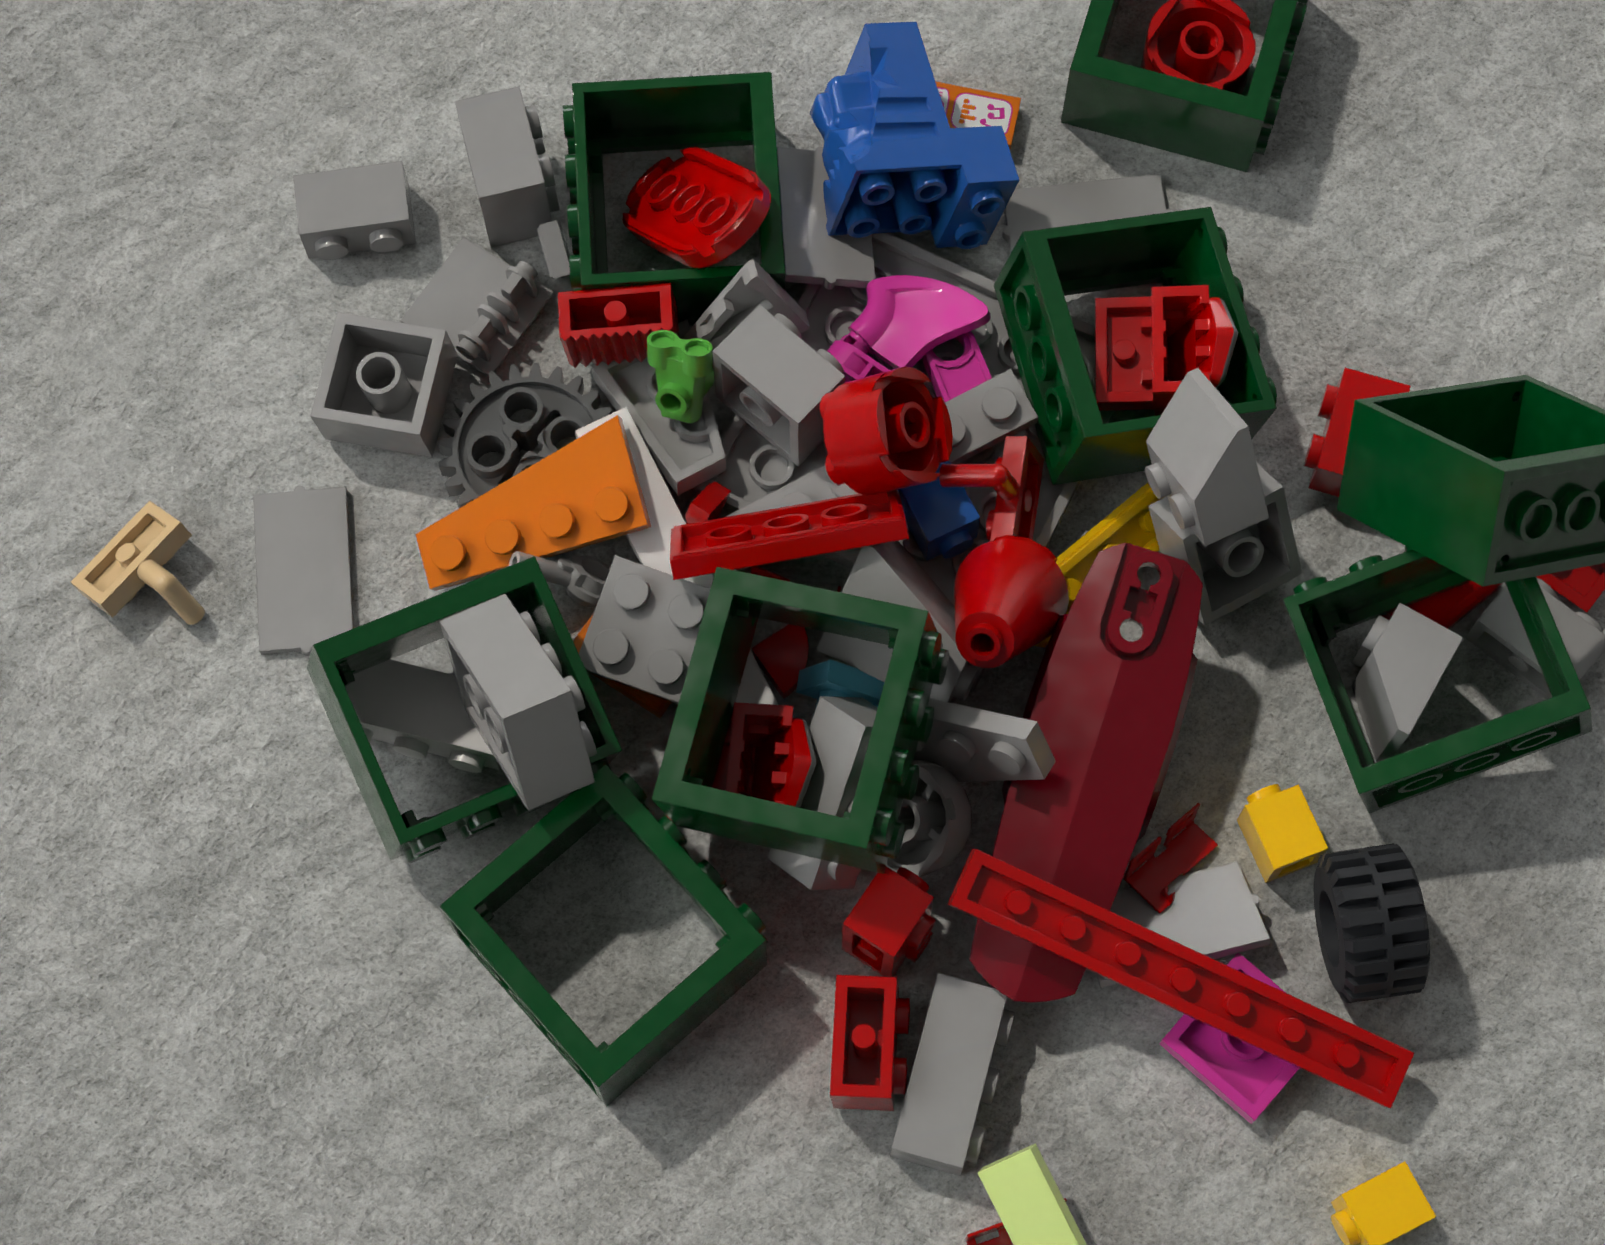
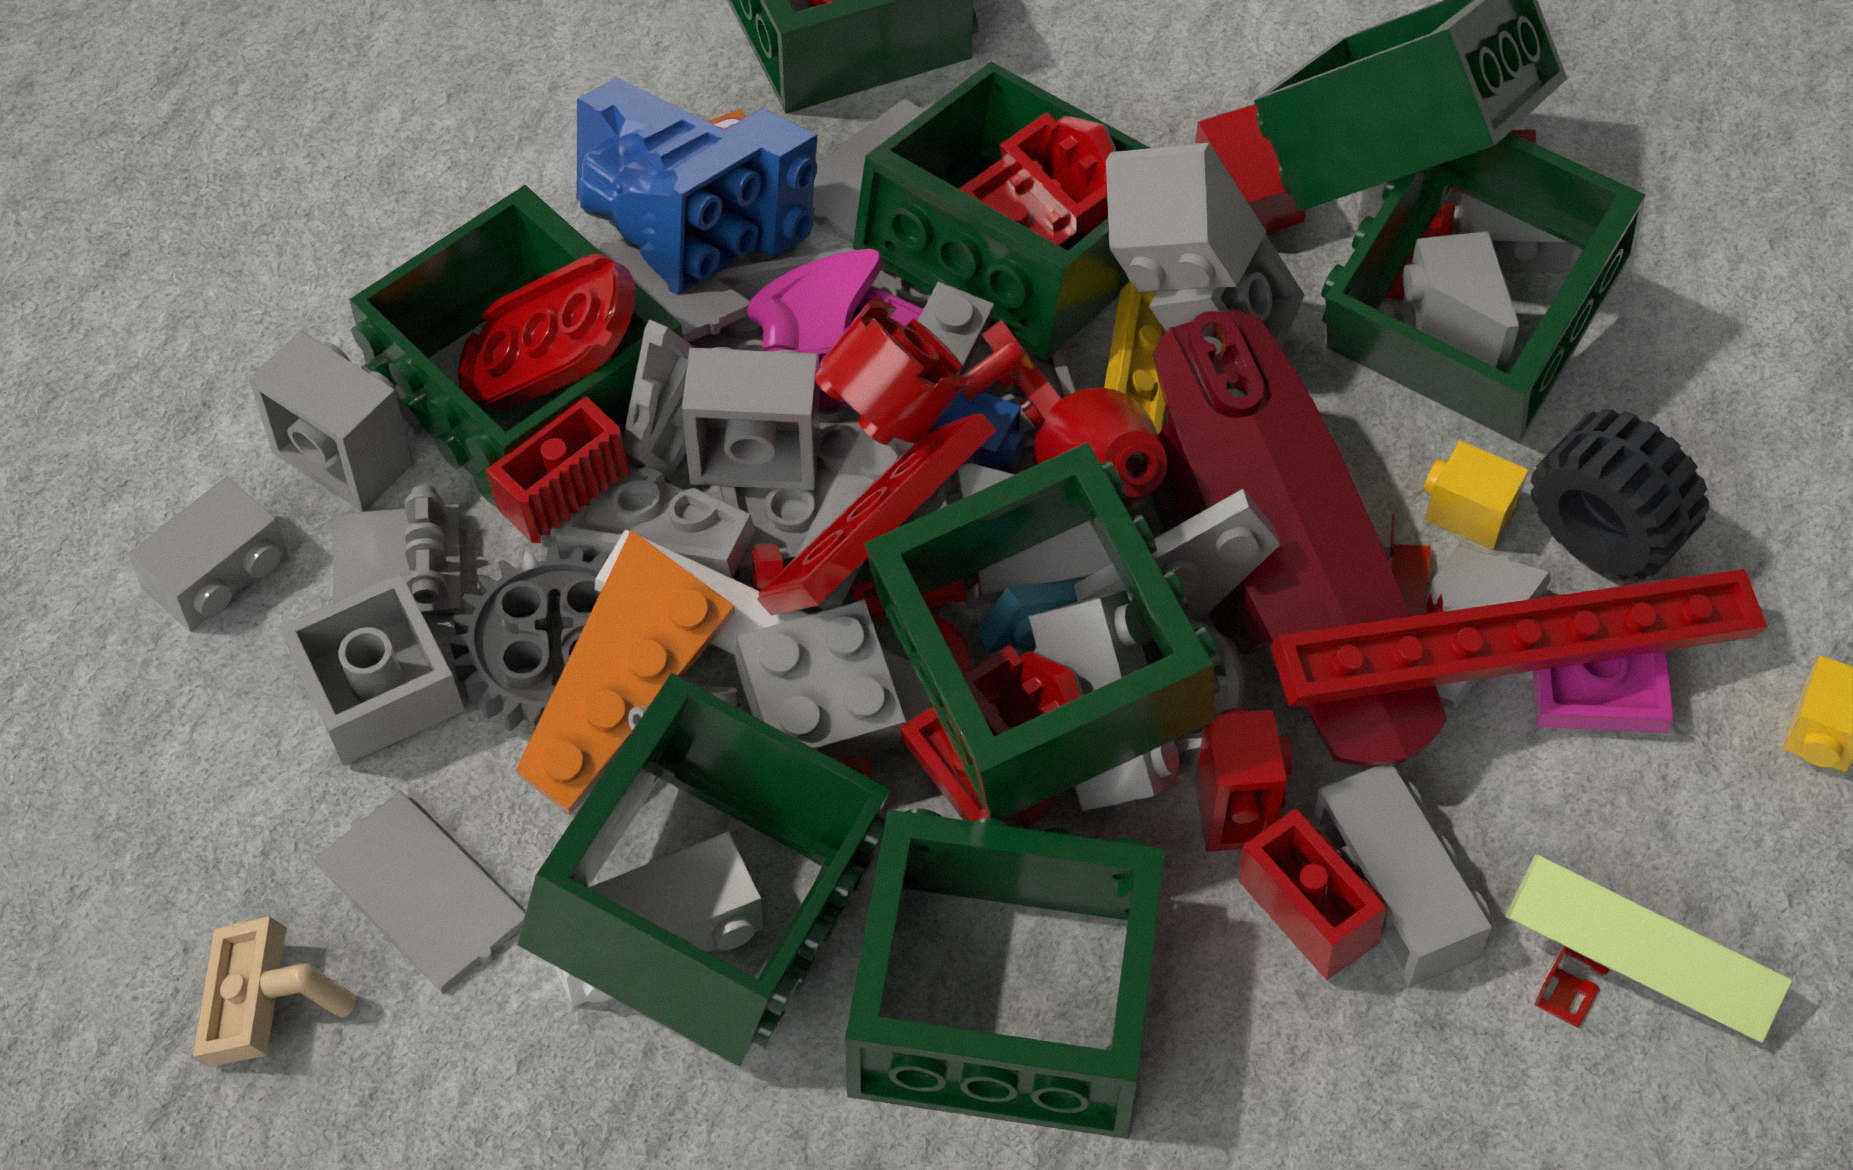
camera: 40 degrees left, 15 degrees down
(520, 700) = (768, 798): light grey brick -> none
(554, 248) = (436, 461): light grey tile -> none
(682, 374) = (653, 458): bright green plate -> none

